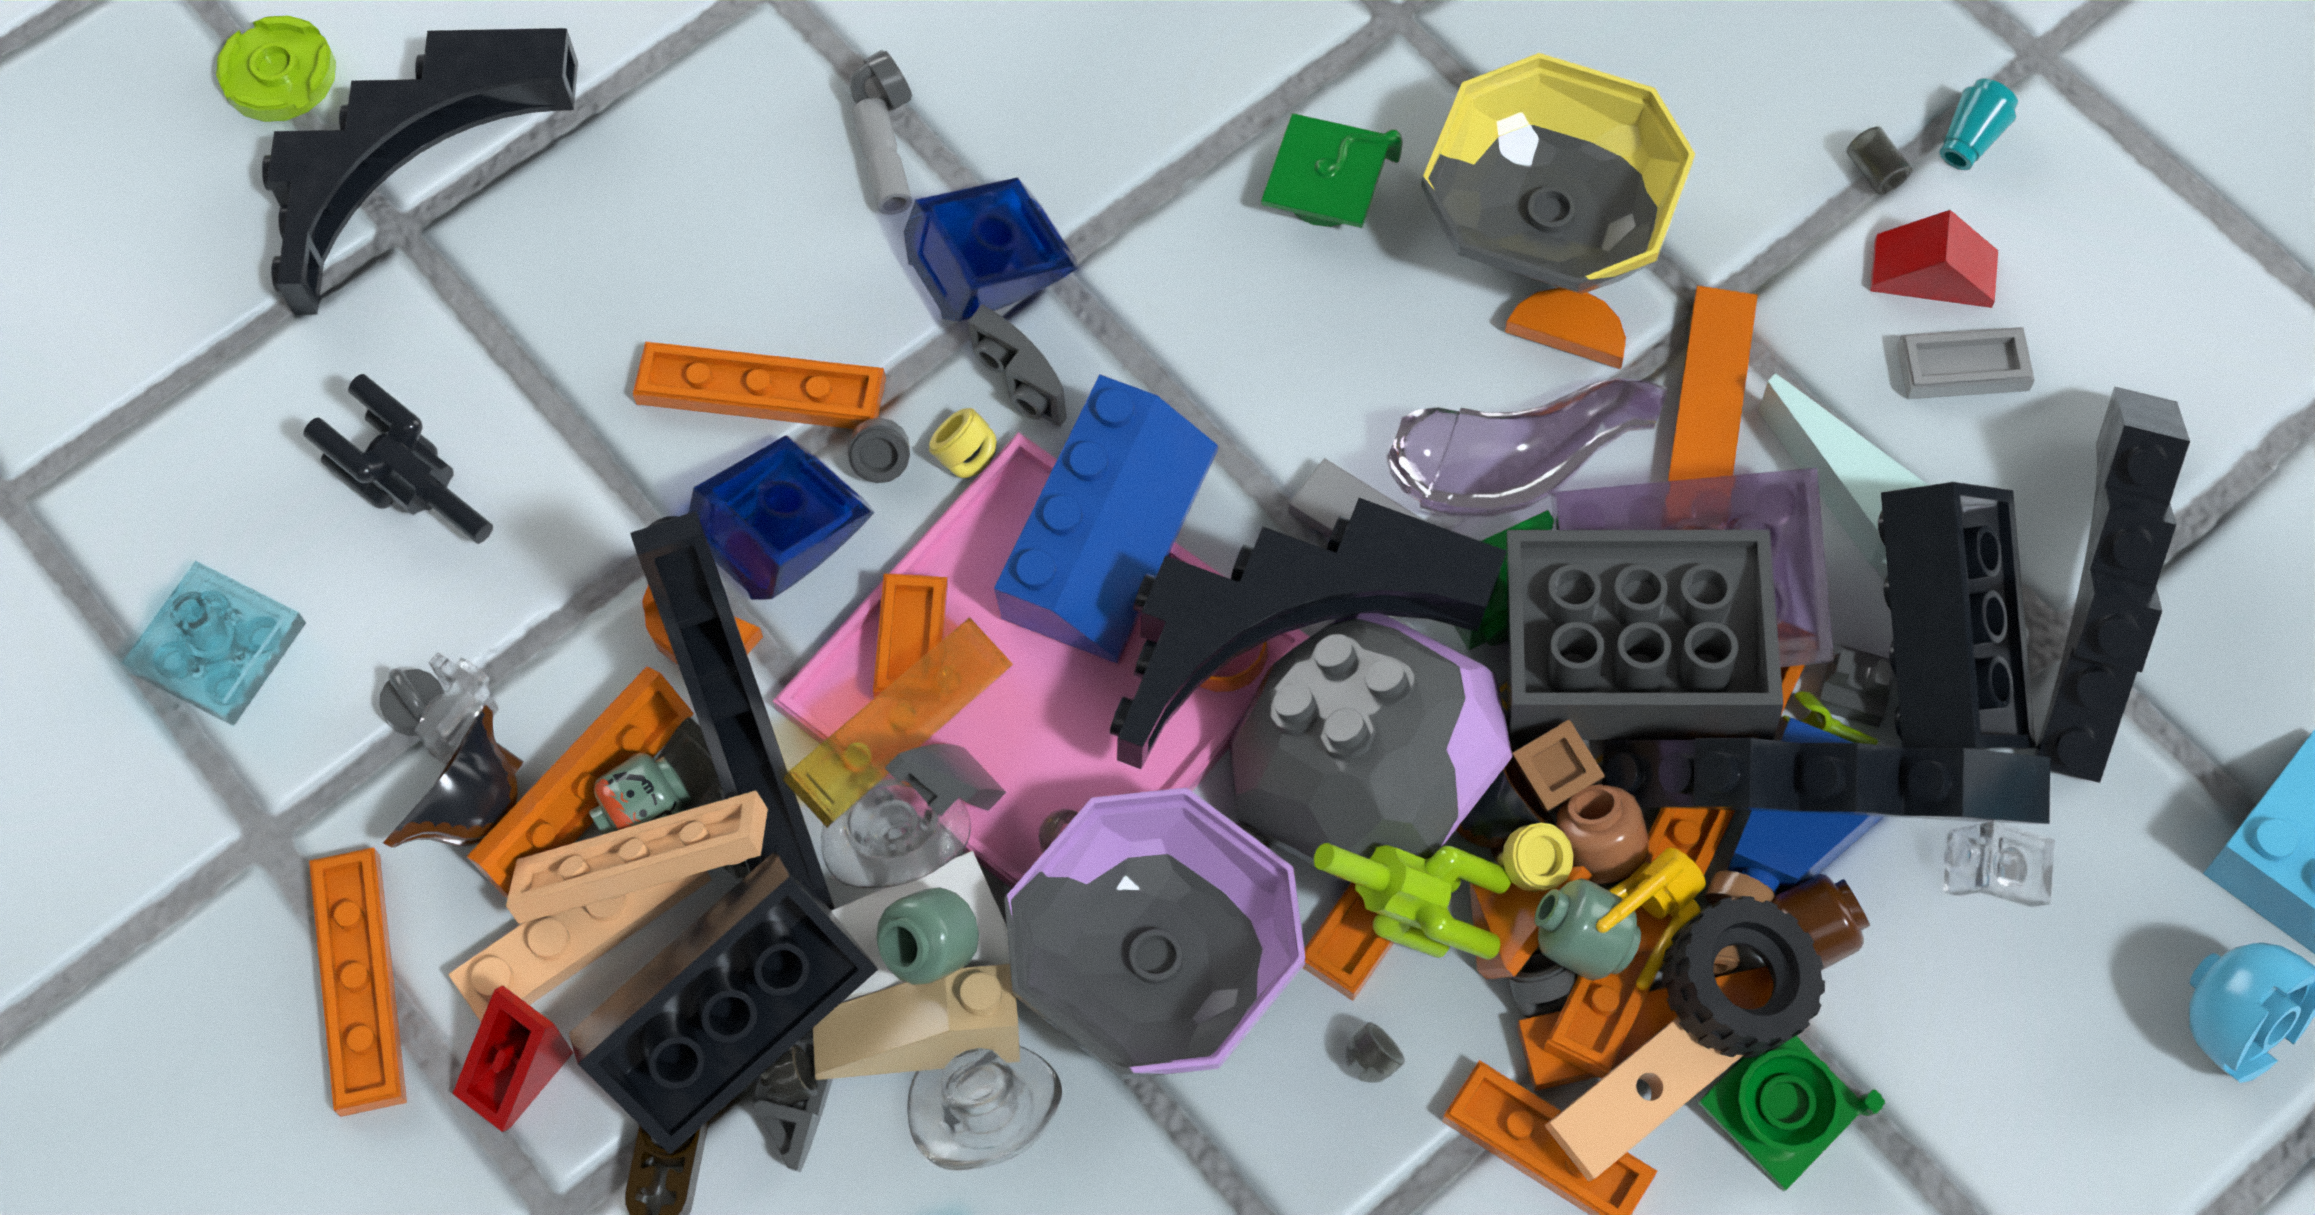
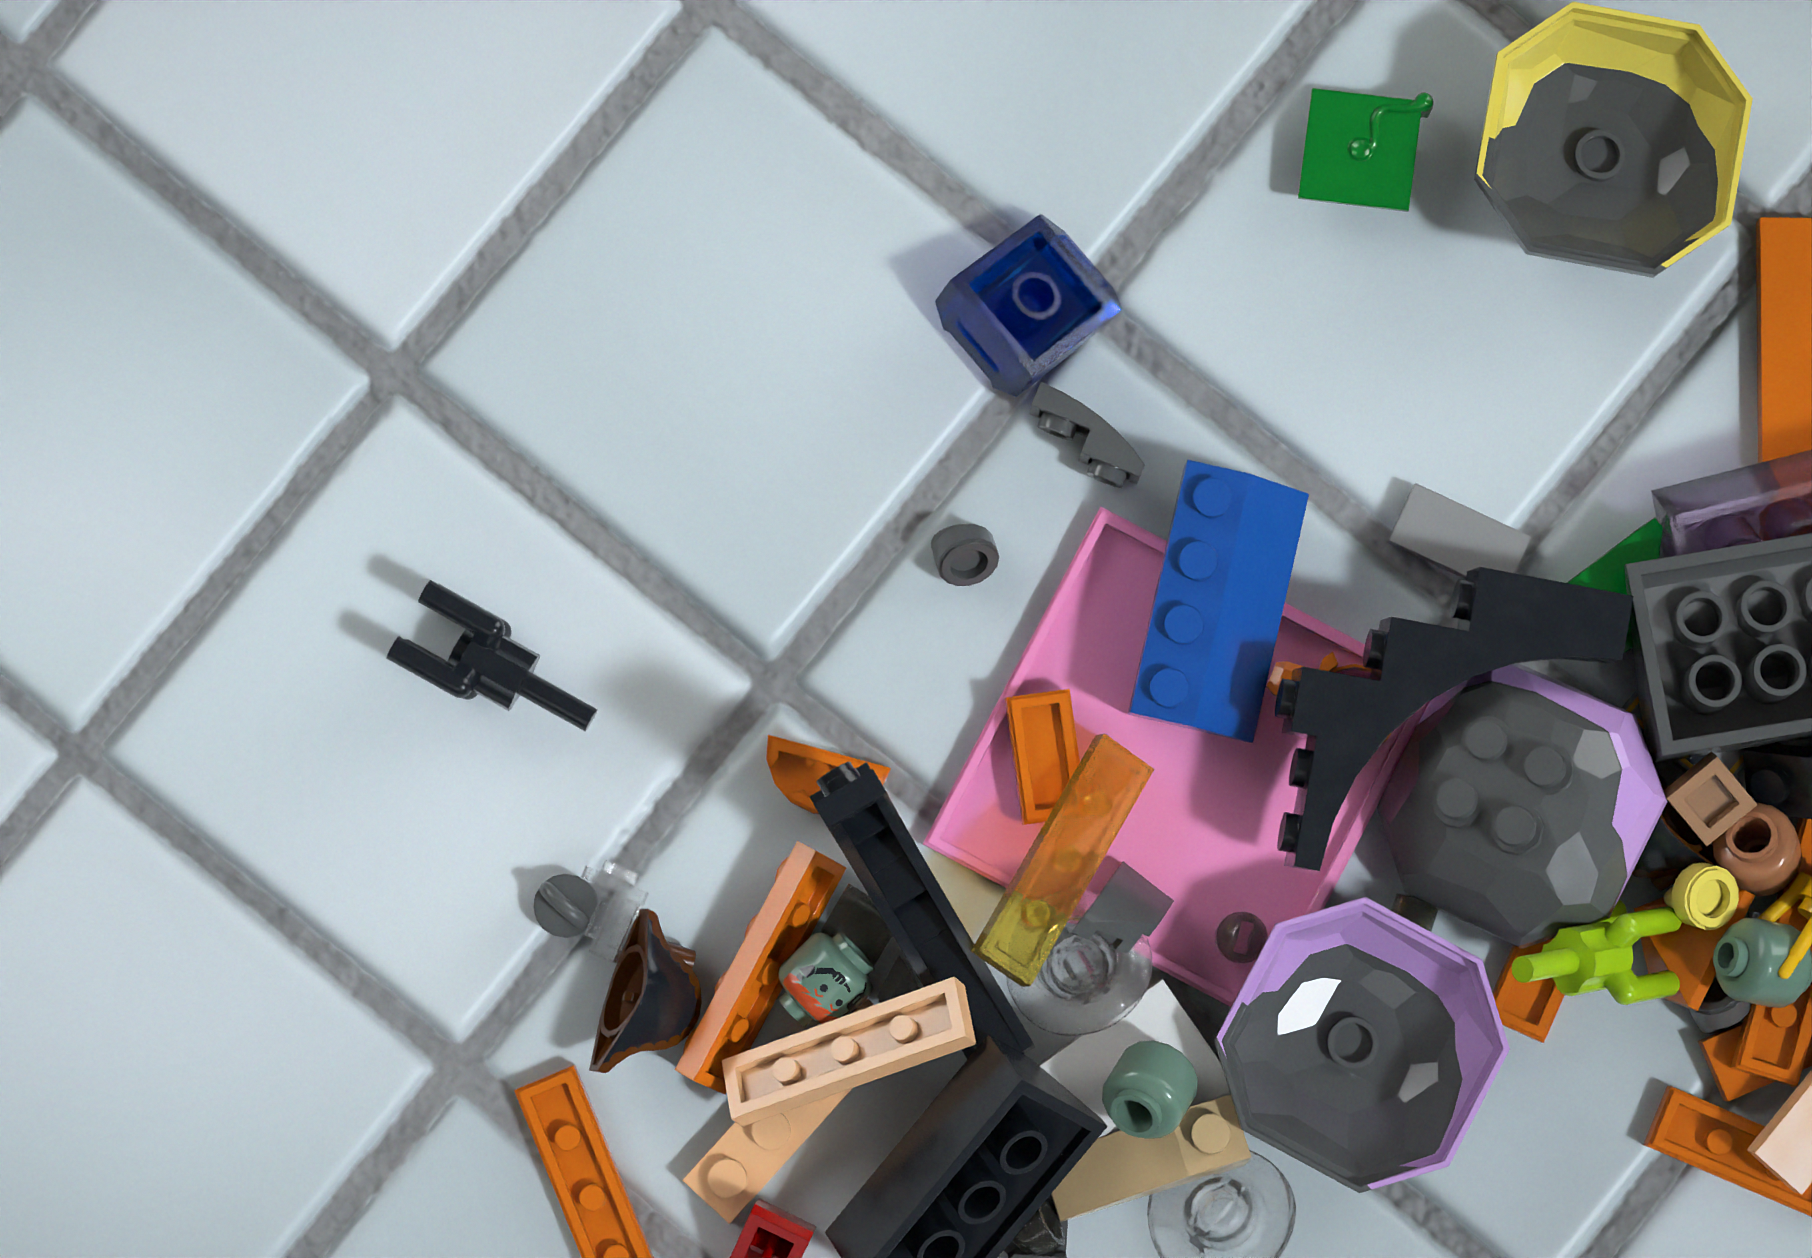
camera: 10 degrees left, 20 degrees up
(198, 630) = (309, 903): clear light blue plate -> none
(276, 69) = (205, 203): lime tile -> none
(458, 85) = (421, 194): black arch -> none
(758, 385) = (821, 495): orange tile -> none
(776, 516) = (884, 648): clear blue slope -> none
(883, 161) = (888, 210): light grey piece -> none
(886, 78) = (868, 108): dark grey tile -> none
(959, 438) = (1046, 528): light yellow tile -> none
(1375, 1053) = (1572, 1097): clear smoke hinge -> none
(1508, 461) = (1602, 462): clear purple animal -> none
(1571, 324) = (1666, 294): orange tile -> none

